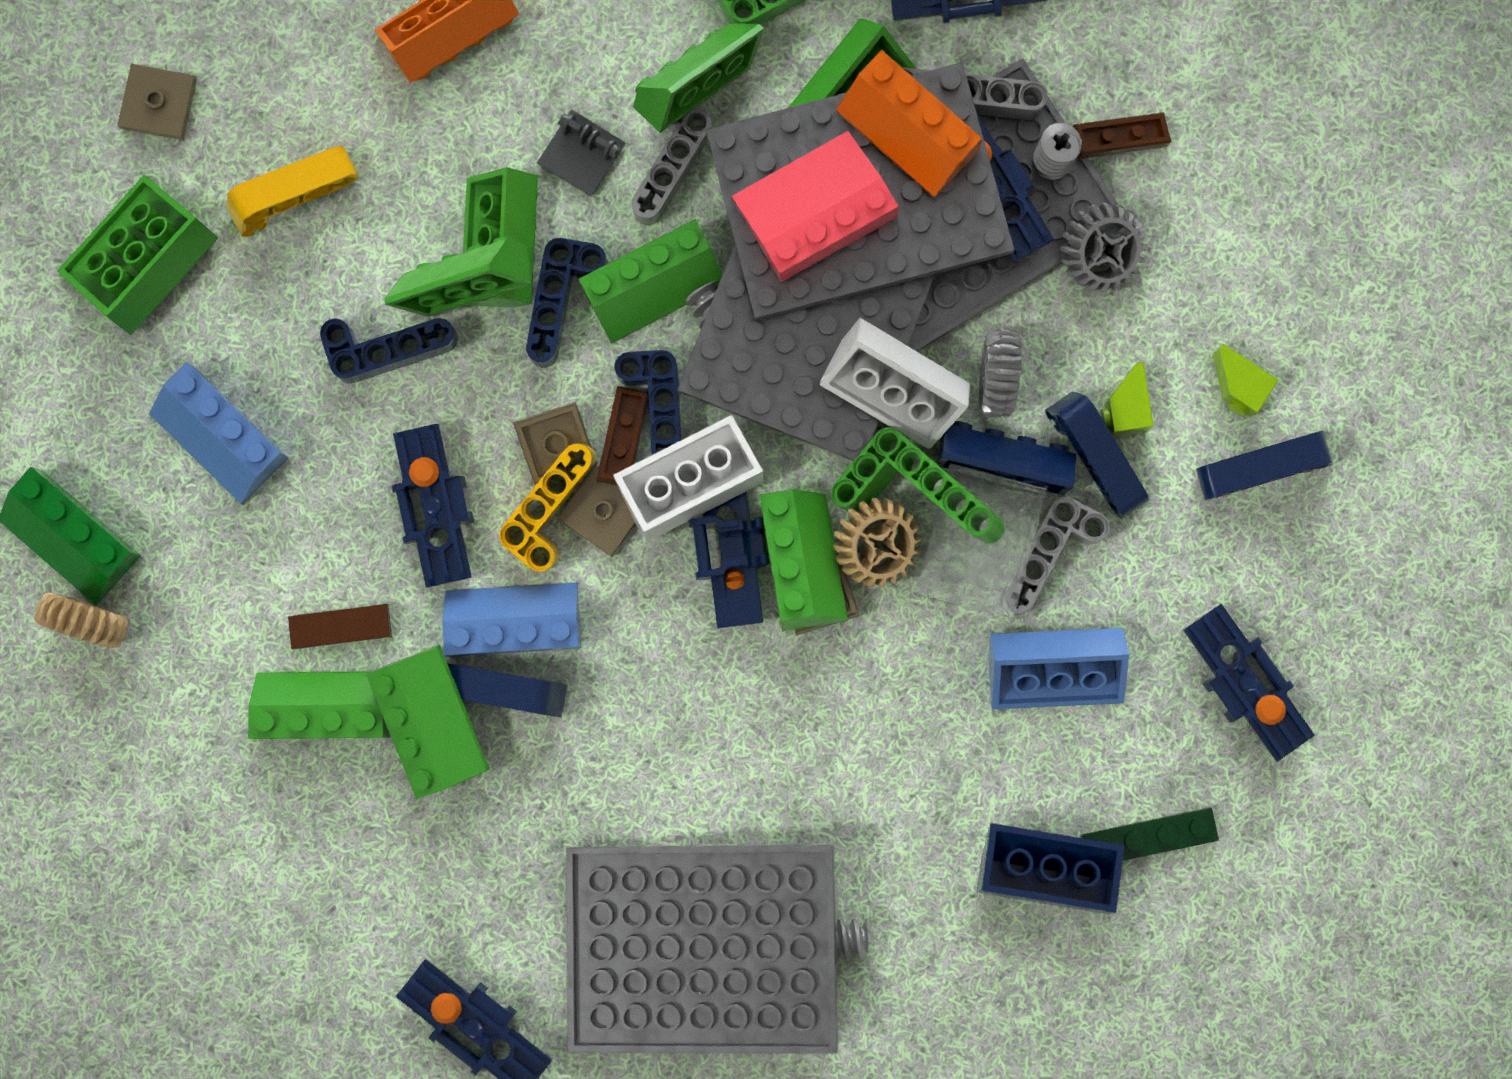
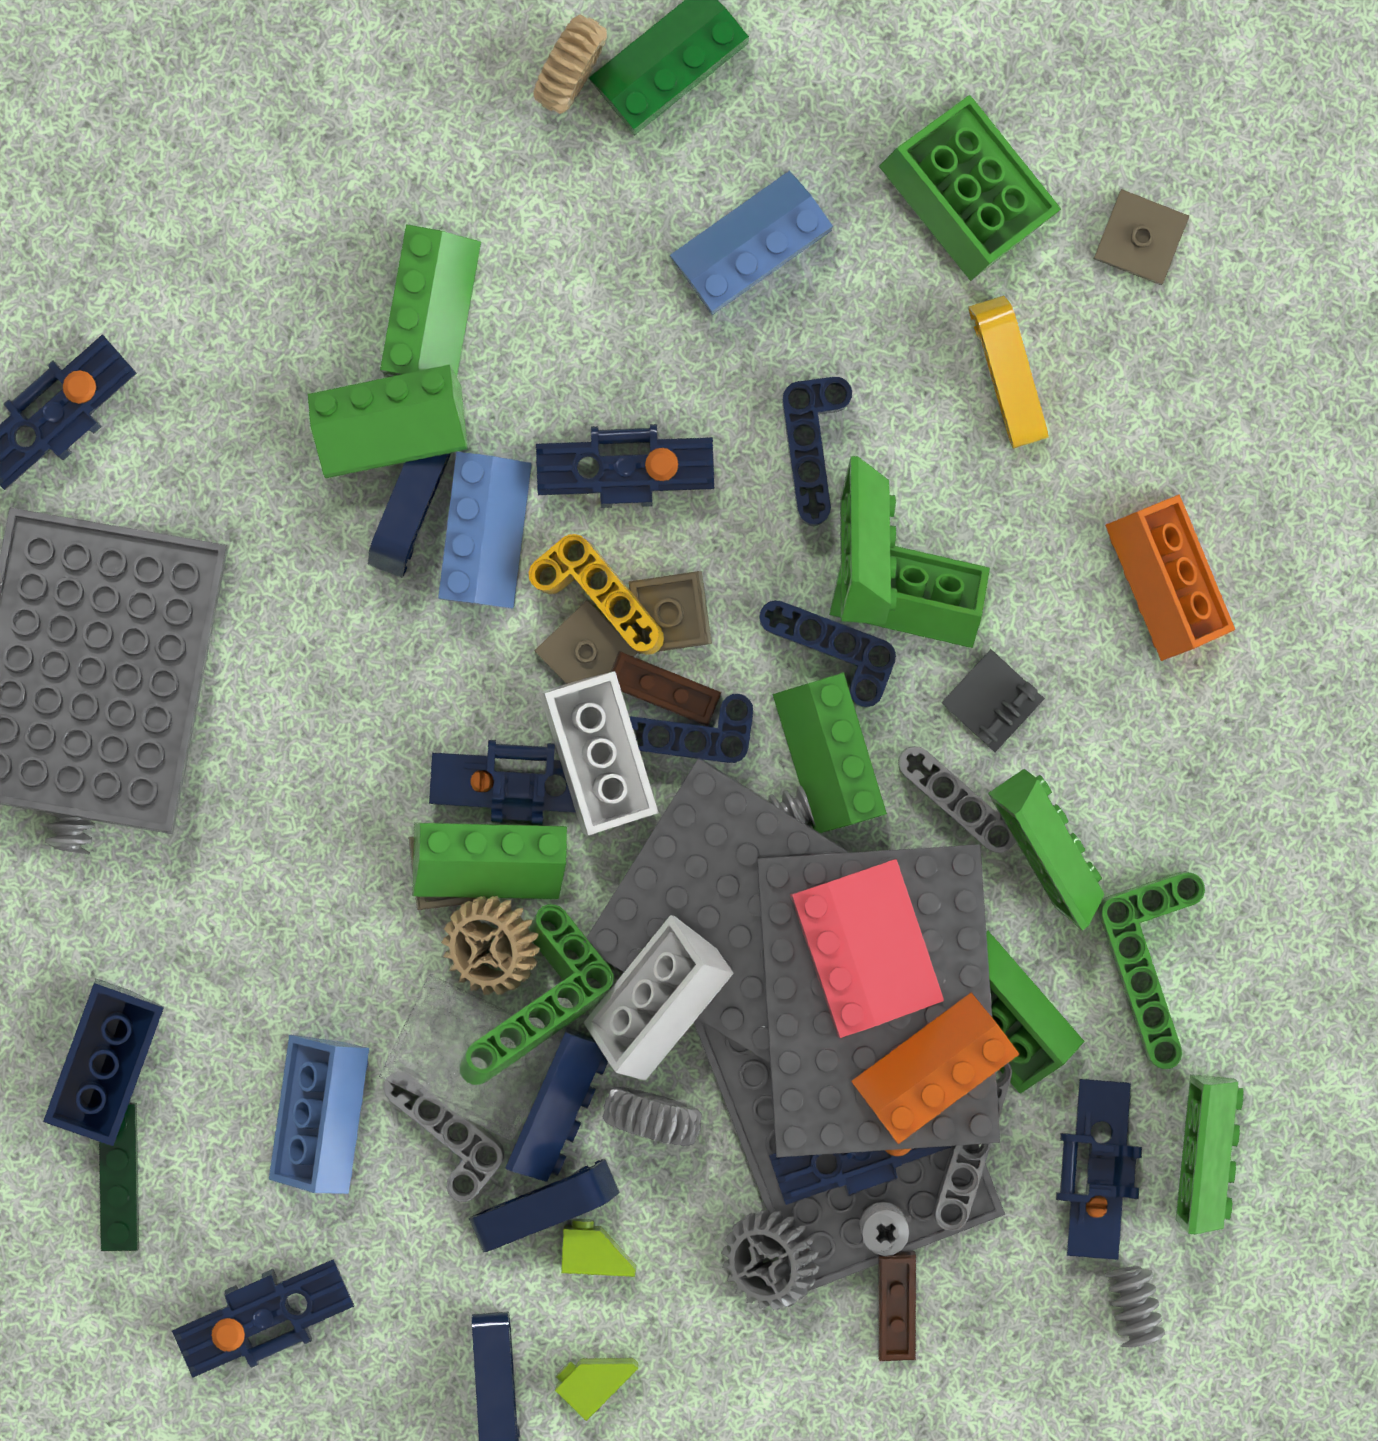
camera: 100 degrees right, 5 degrees up
(340, 626) = (513, 341): reddish brown tile -> none

